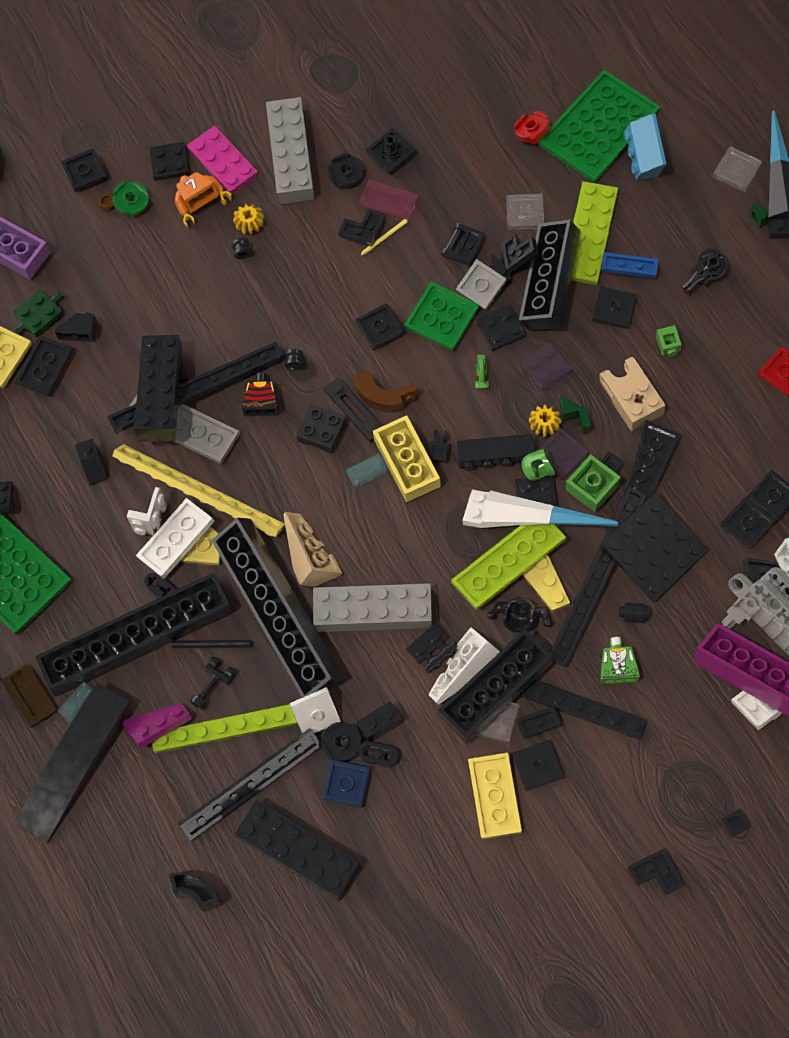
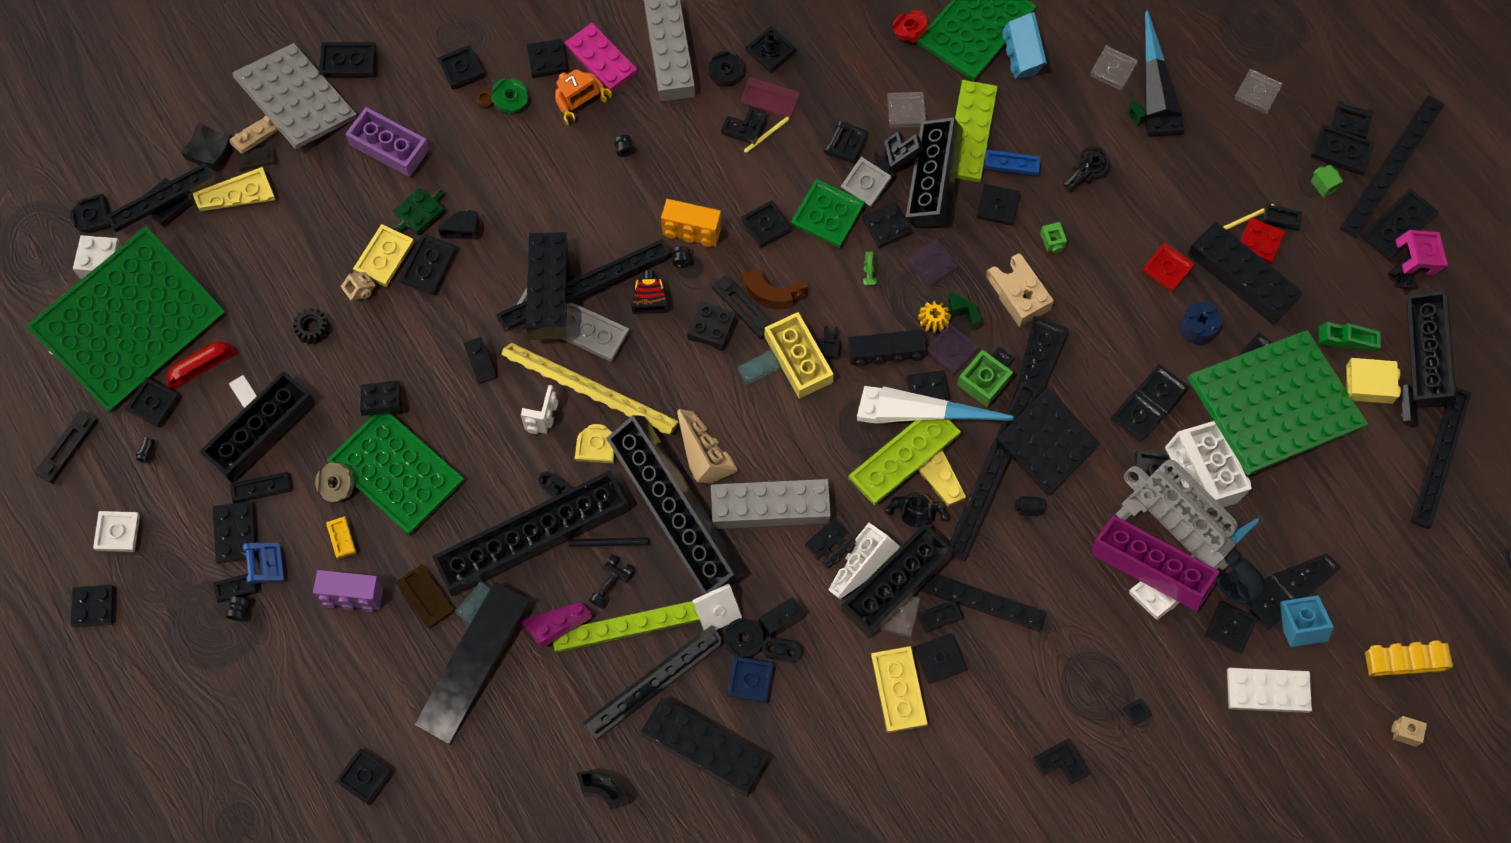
camera: 10 degrees left, 0 degrees up
(175, 538) = (568, 436): white plate -> none
(248, 219) = (630, 116): yellow gear -> none
(304, 325) = (691, 223): none -> light orange brick
(537, 465) = (929, 361): bright green helmet -> none
(618, 664) = (1016, 557): torso -> none

